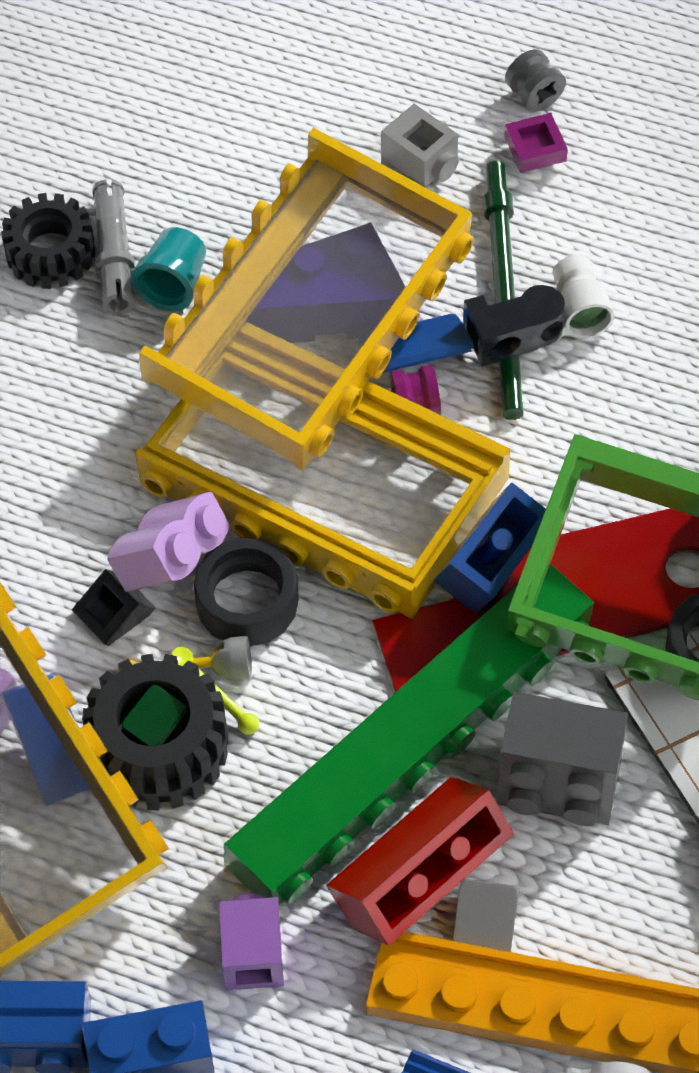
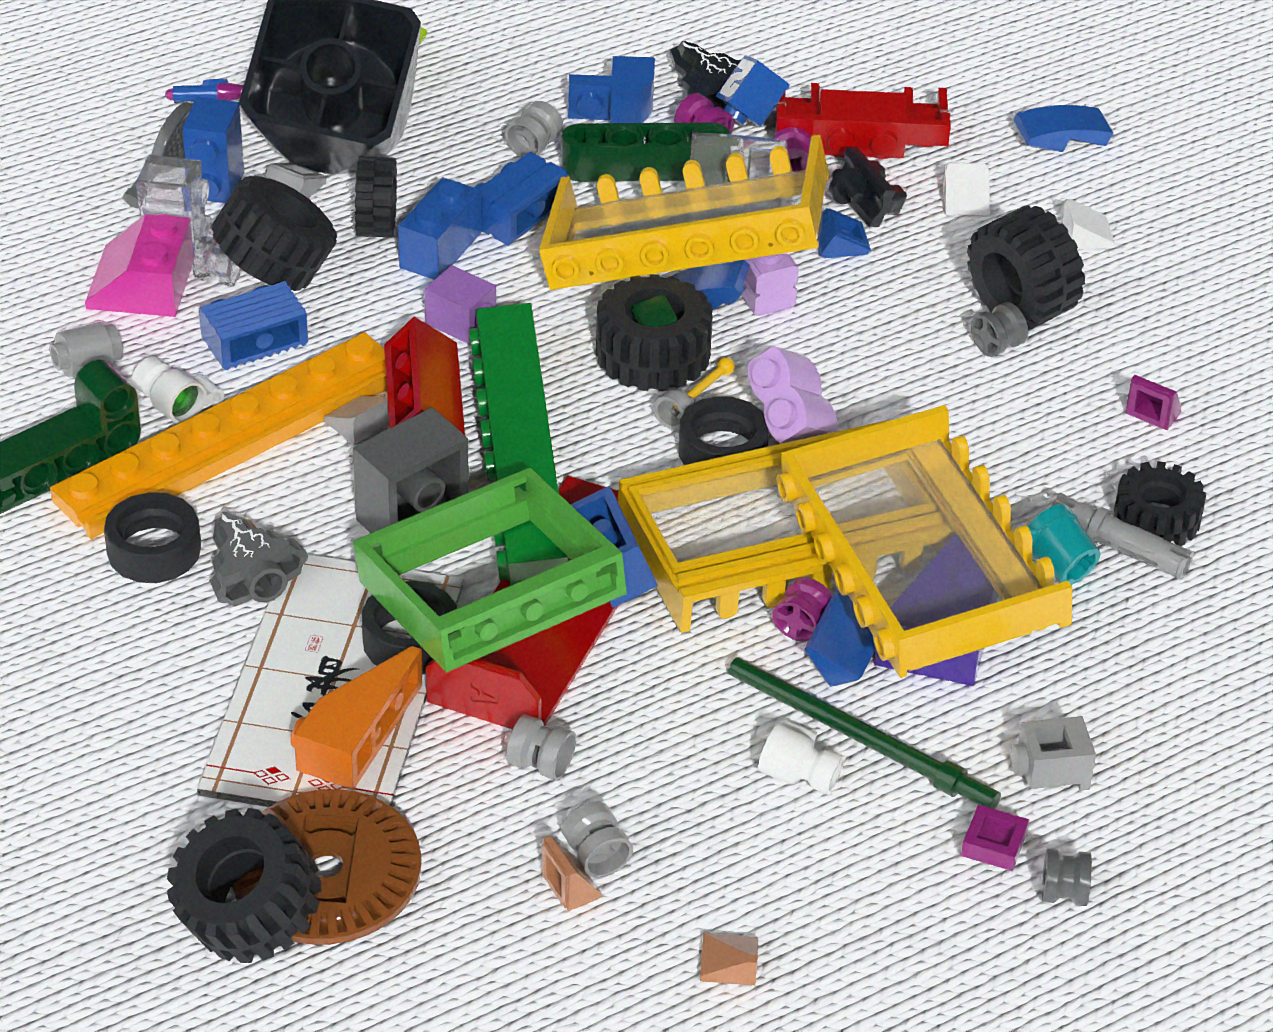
camera: 125 degrees right, 15 degrees down
(247, 722) = (698, 376): neon yellow hinge -> none
(514, 324) = (802, 673): black leg -> none

